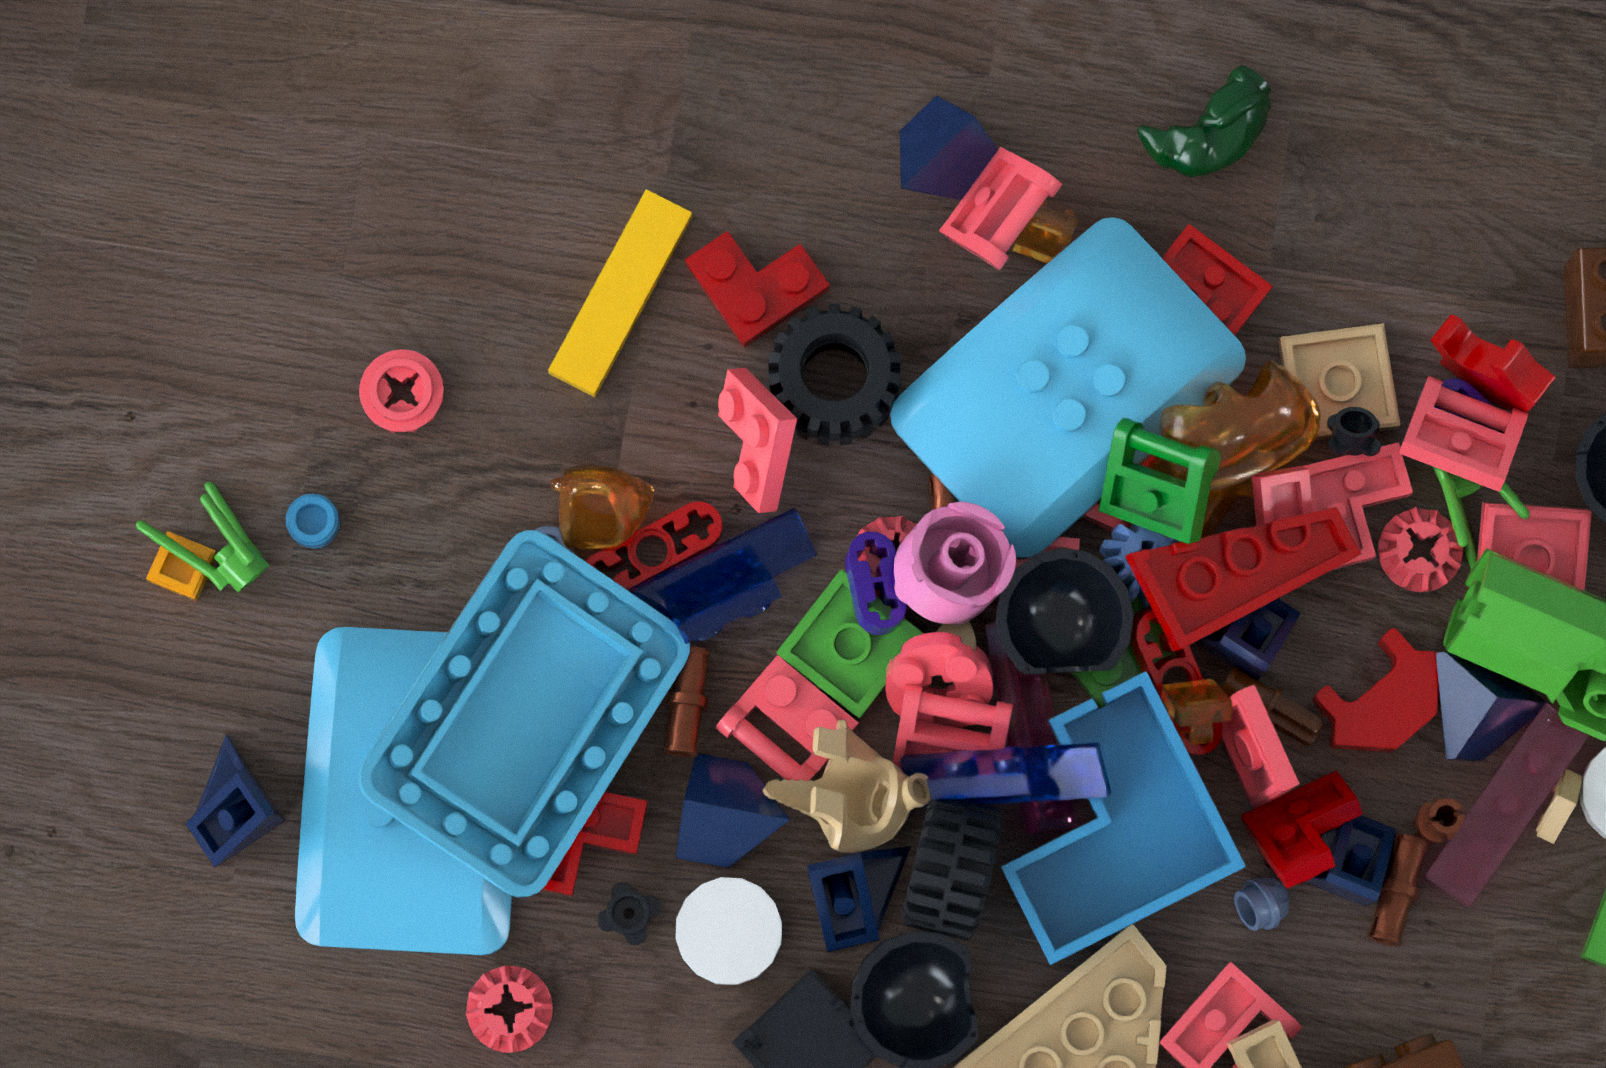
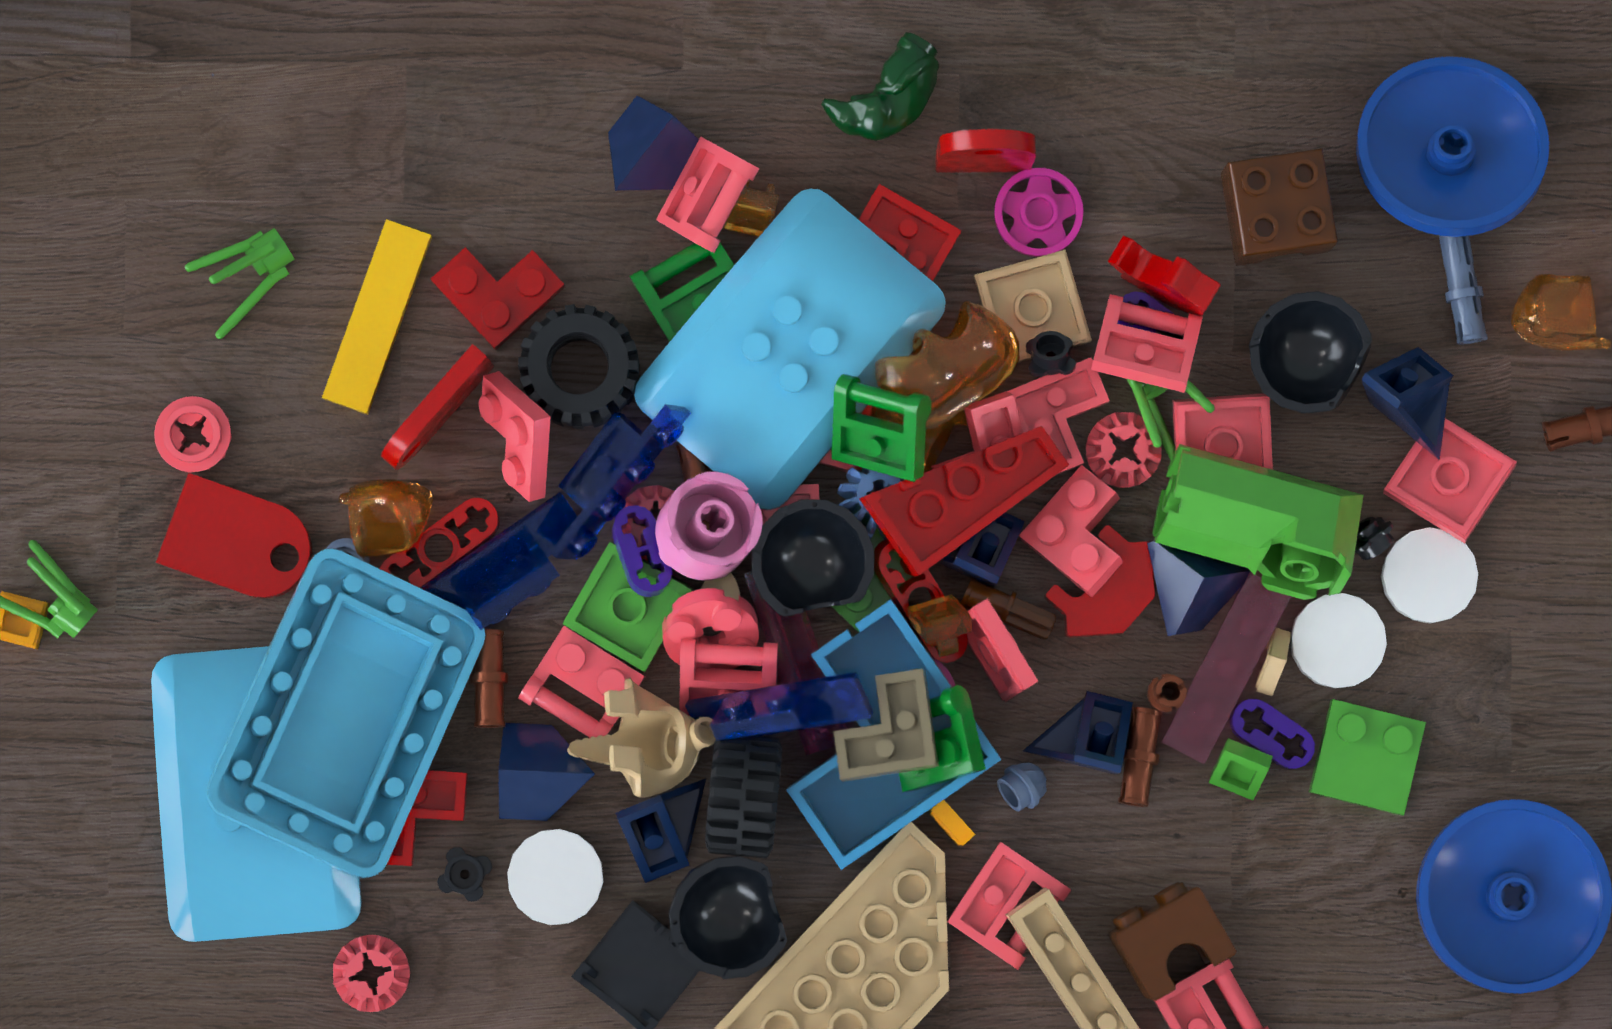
camera: 15 degrees left, 5 degrees up
(232, 808) = (98, 830): dark blue slope -> none
(312, 521) = (130, 562): dark azure tile -> none
(427, 510) = (232, 539): none -> red tile
(509, 208) = (262, 251): none -> bright green plant
(673, 394) = (437, 407): none -> red tile
(852, 491) = (608, 472): none -> clear blue bracket
(951, 325) = (681, 304): none -> green plate
(1136, 830) = (902, 739): none -> dark tan plate
(1177, 851) = (956, 746): none -> green plate
(1177, 933) = (951, 823): none -> light orange tile
(1291, 827) = (1038, 712): red plate -> none
(1312, 200) = (985, 151): none -> red tile
(1345, 627) = (1063, 531): none -> coral plate
(1358, 279) = (1038, 212): none -> dark pink wheel
(1509, 919) = (1240, 769): none -> bright green plate
(1557, 876) = (1279, 724): none -> dark purple beam

